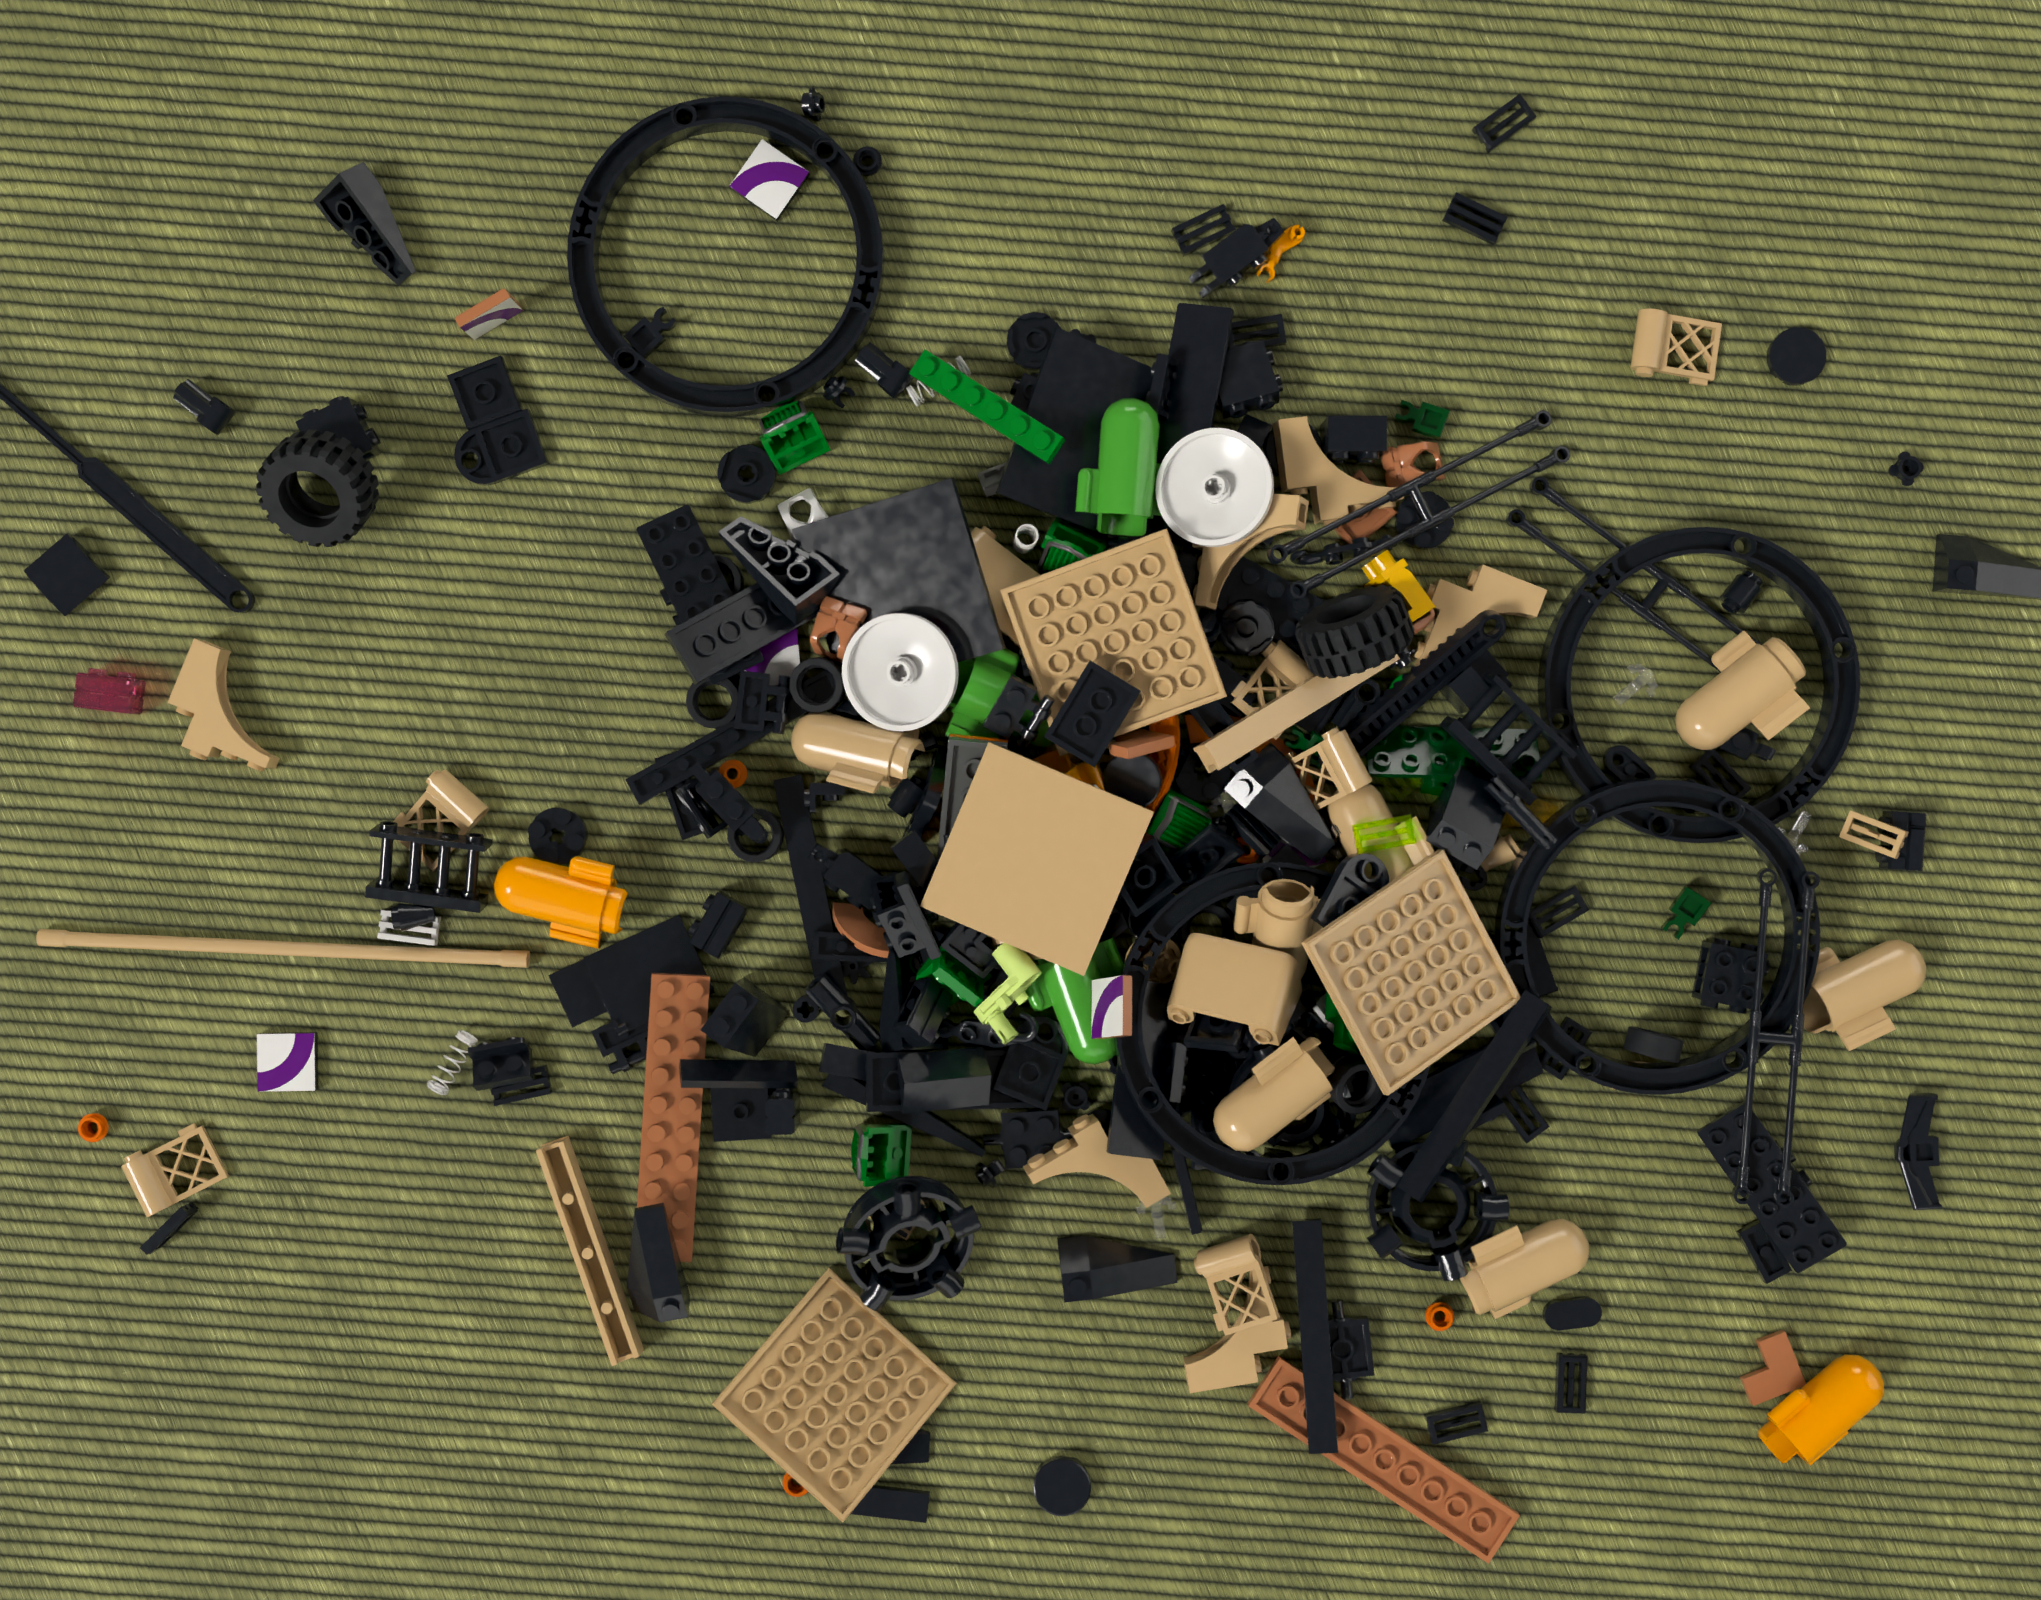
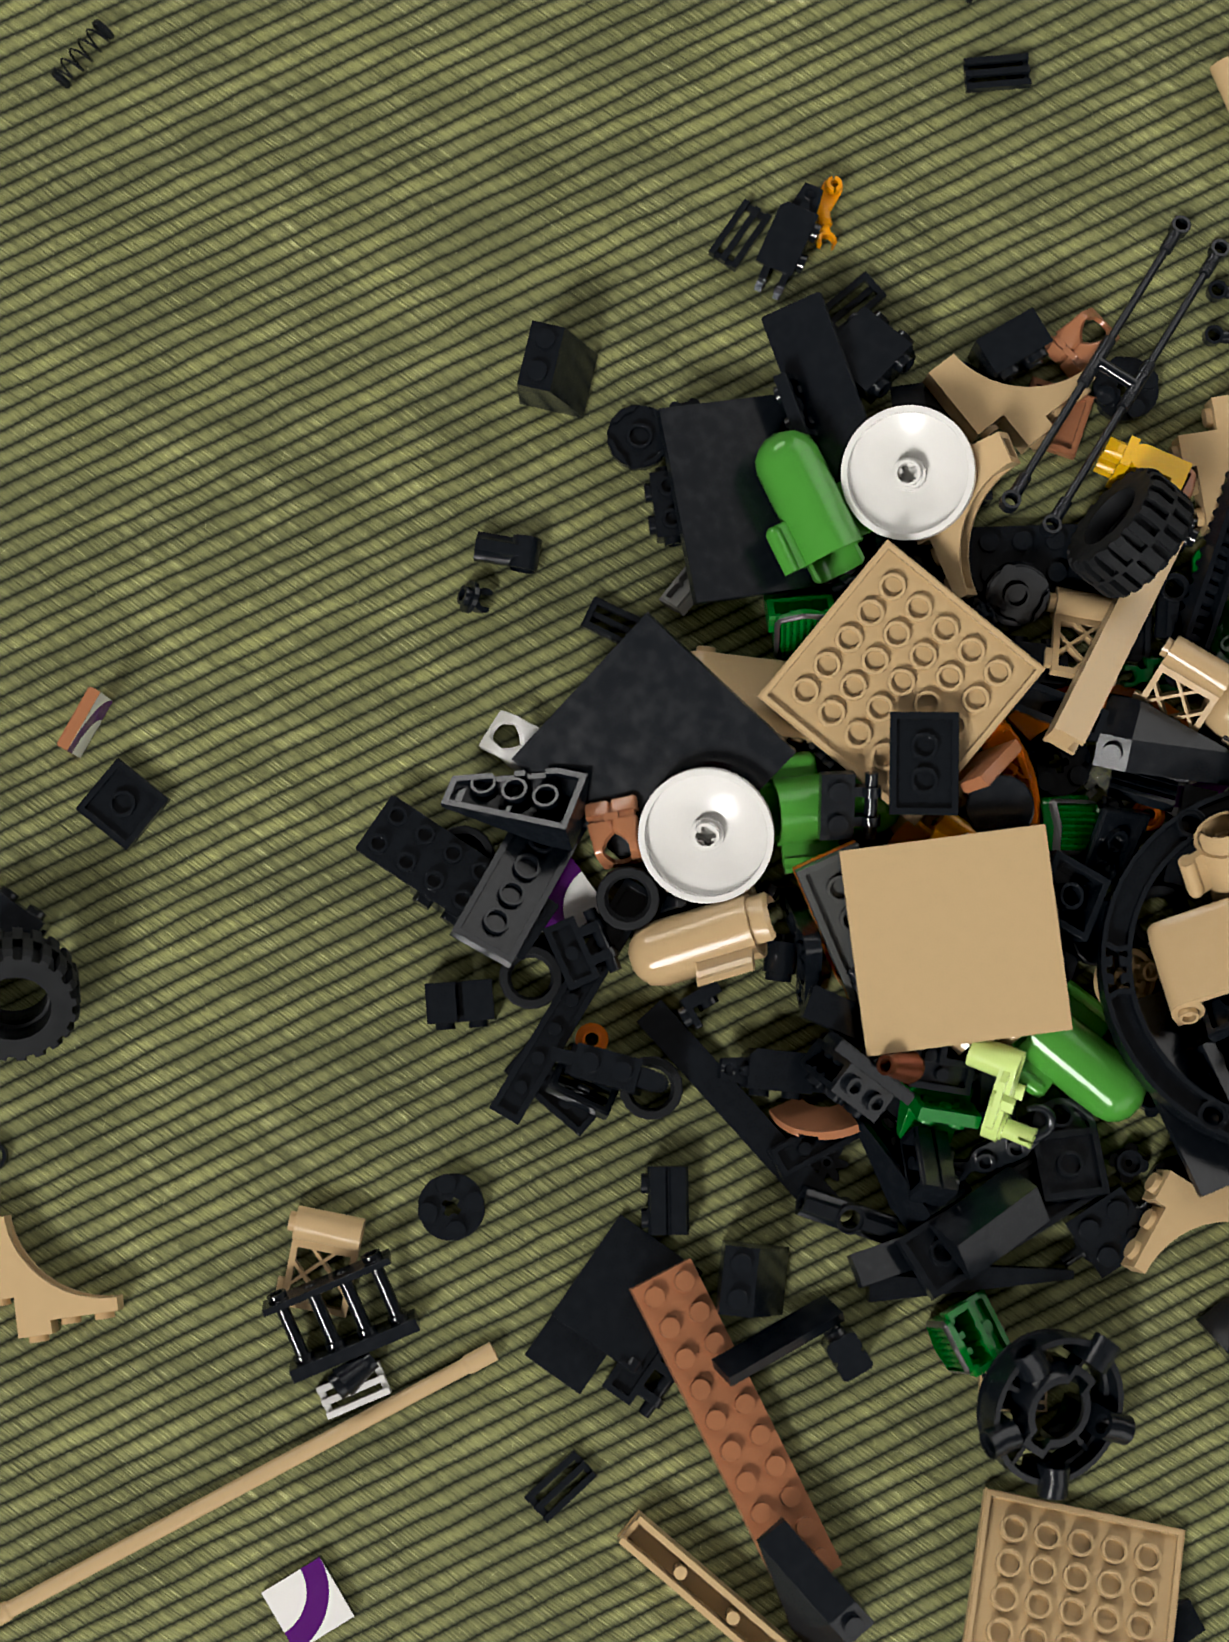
camera: 30 degrees left, 5 degrees down
(437, 1087) = (479, 1470): white piece -> none
(501, 1063) = (529, 1473): black bracket -> none
(503, 449) = (172, 849): black tile -> none
(575, 899) = (507, 1261): light orange piece -> none
(647, 335) = (252, 654): black plate -> none
(650, 689) = (460, 1002): none -> black piece
(656, 134) = (195, 401): black piece -> none
(739, 459) = (415, 722): black plate -> none
(739, 1113) = (802, 1381): black plate -> none
(769, 180) = (285, 432): tile -> none
(792, 436) = (455, 667): green piece -> none
(801, 1015) = (816, 1234): black bush -> none
(813, 104) = (286, 334): black plate -> none
(867, 152) = (367, 349): black plate -> none
(913, 394) = (580, 501): white piece -> none
(920, 454) = (591, 613): none -> black tile
(942, 929) = (902, 1066): none -> copper cone
(986, 1174) = (1087, 1294): black plate -> none
(987, 406) = (635, 525): green plate -> none
(999, 252) = (556, 370): none -> black slope
(1026, 529) = (751, 642): white piece -> none
(1111, 1007) = (1118, 1045): tile -> none
(1335, 553) = (1059, 471): black piece -> none
(1427, 420) = (1071, 290): dark green plate -> none

